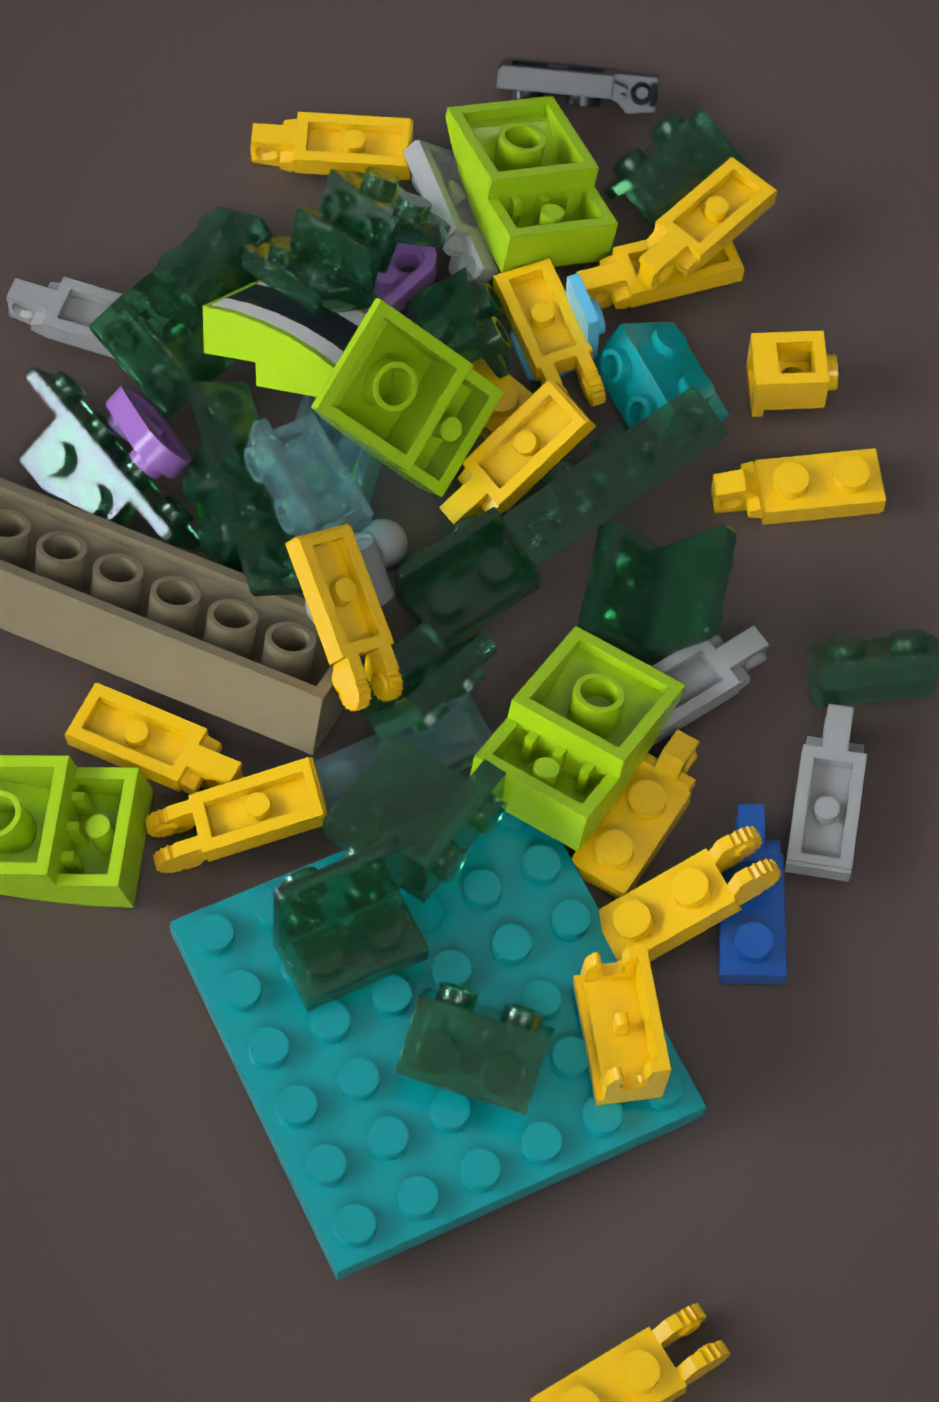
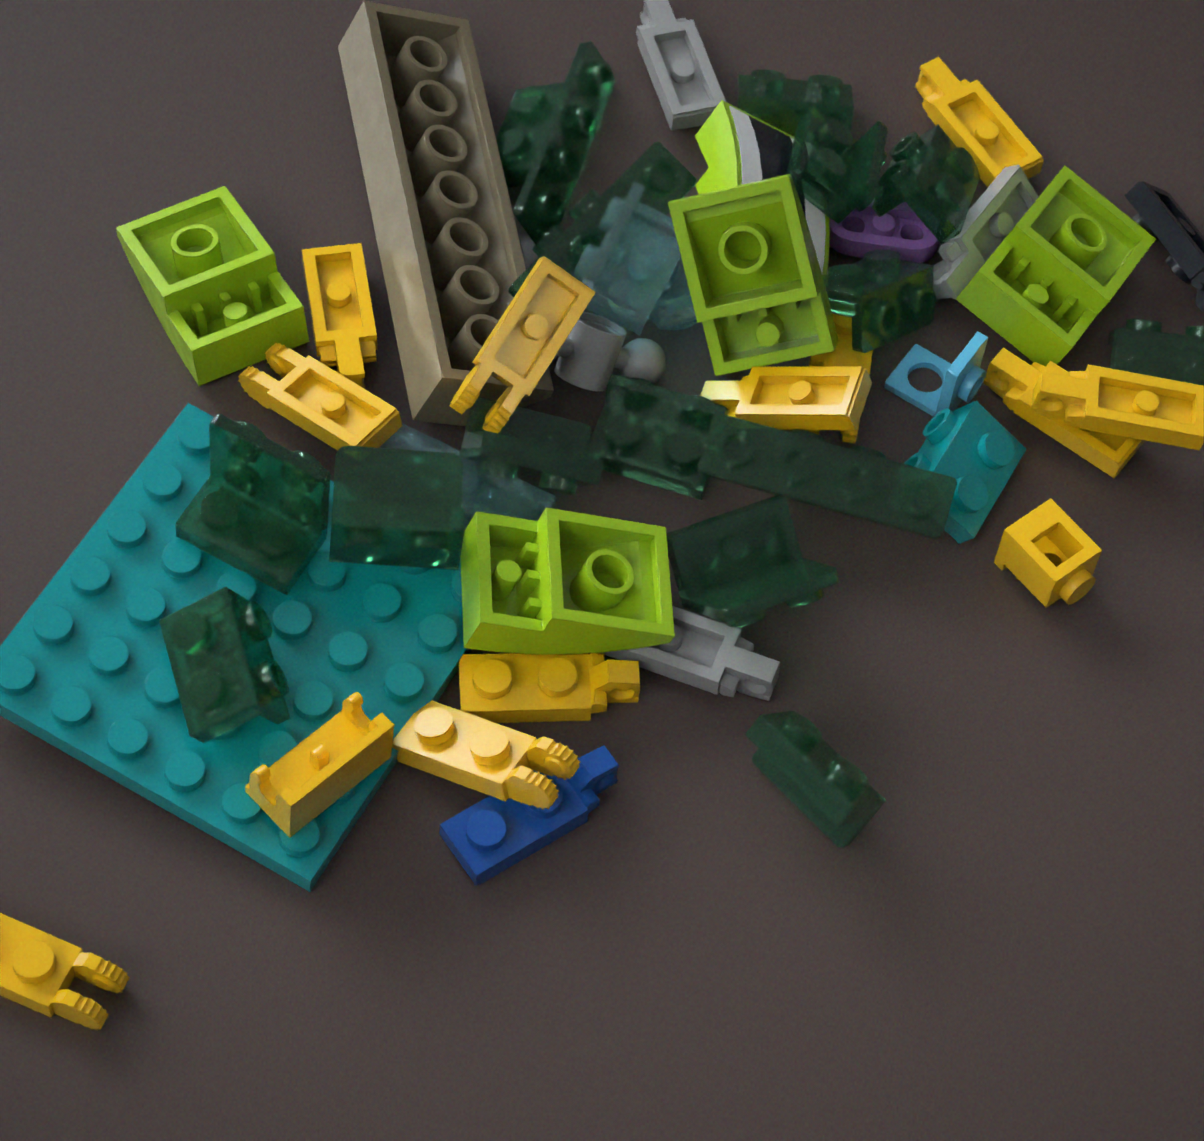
camera: 50 degrees right, 5 degrees down
(147, 430) = (603, 148): medium lavender plate -> none
(158, 341) = (683, 94): clear green bracket -> none
(547, 327) = (923, 363): yellow hinge -> none
(803, 487) = (954, 634): yellow hinge -> none
(827, 801) = (667, 814): light grey hinge -> none

